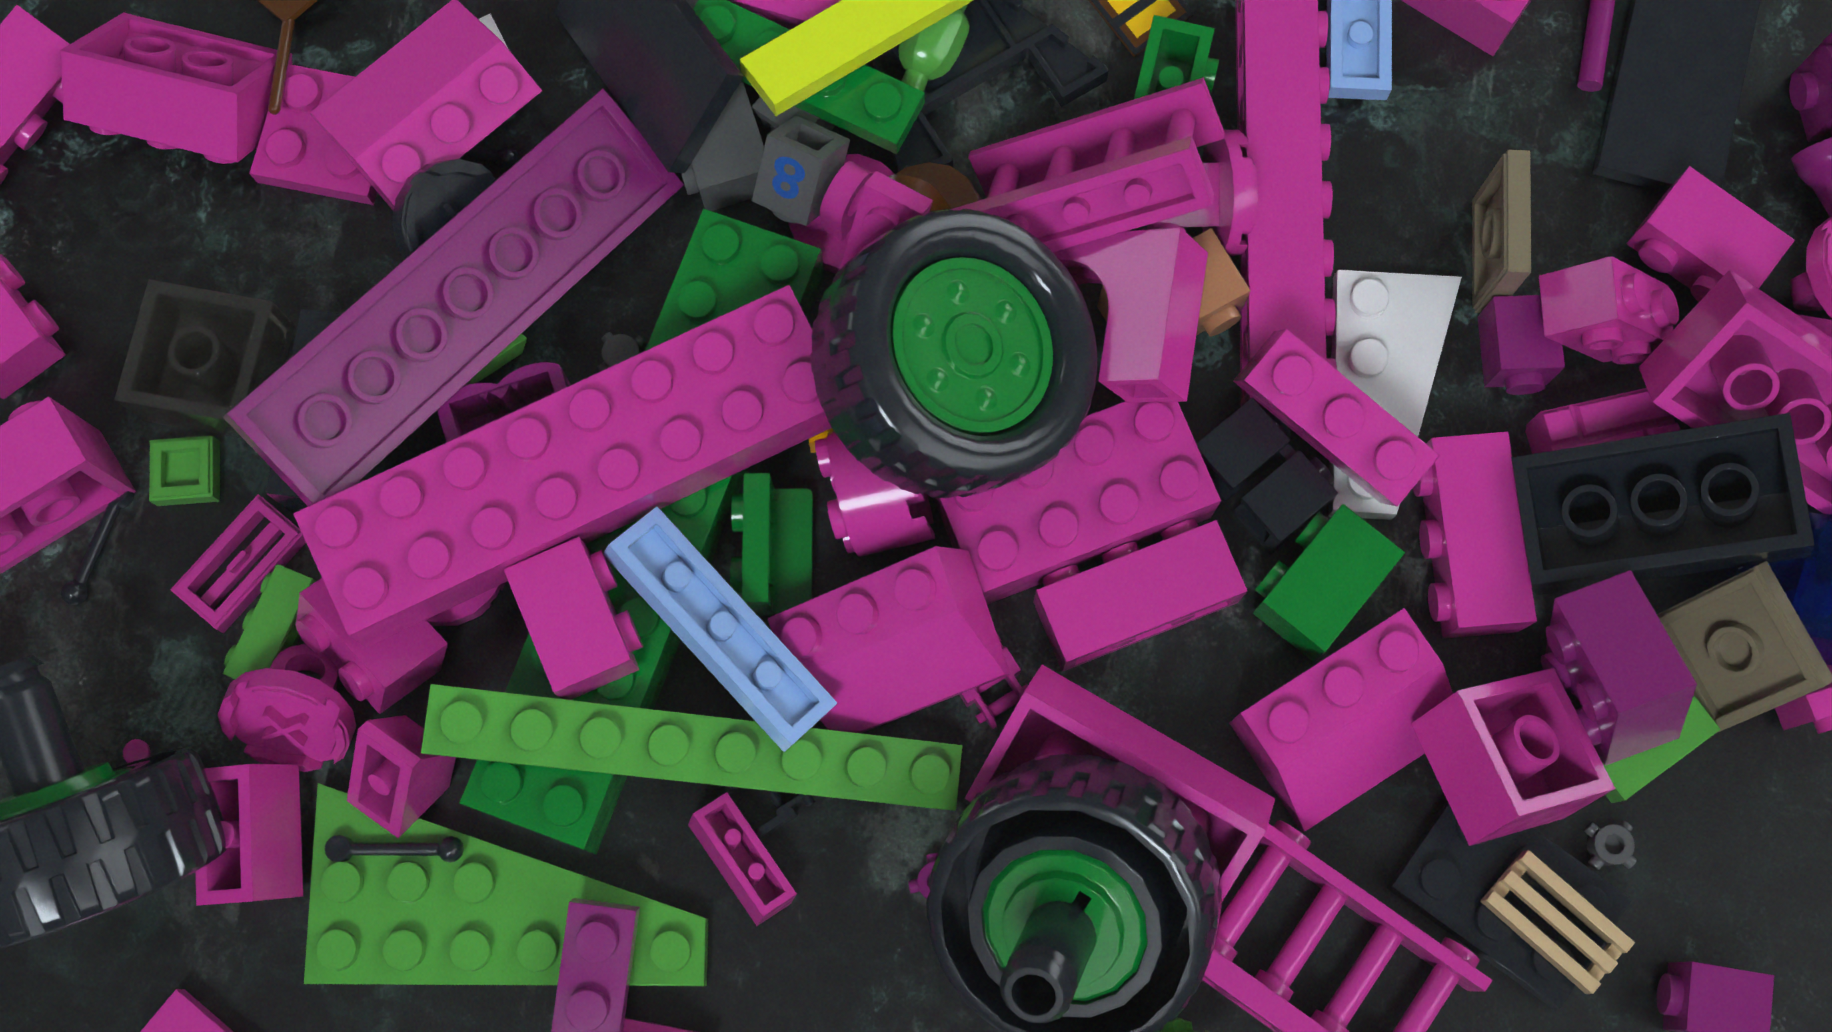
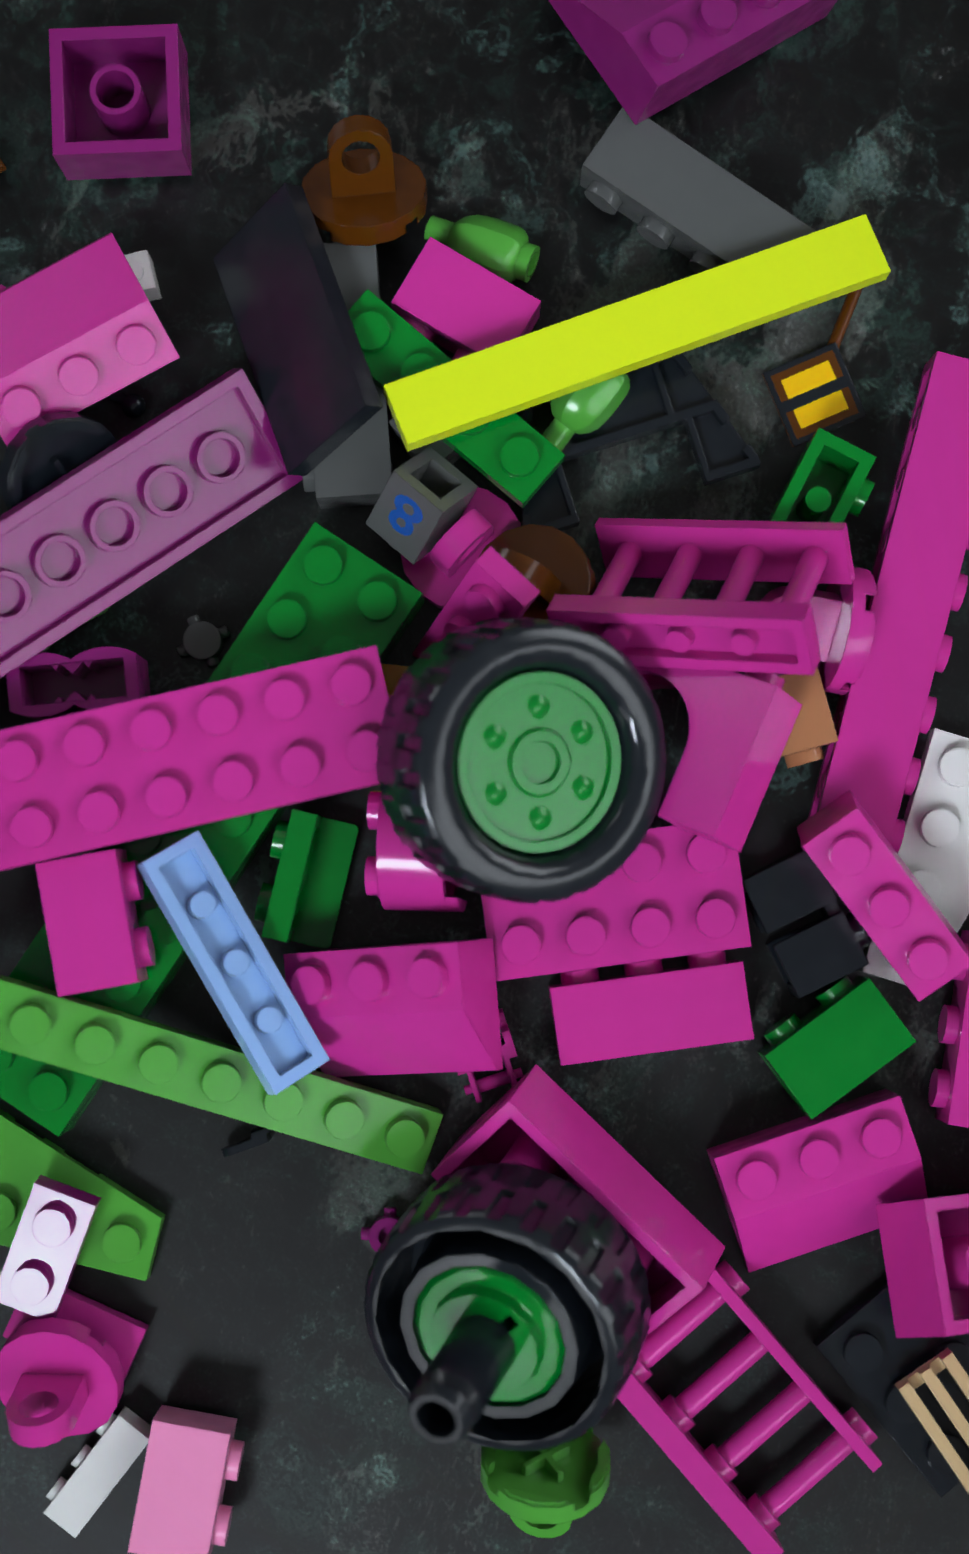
camera: 10 degrees right, 10 degrees up
(742, 859) = (208, 1172): dark pink piece -> none

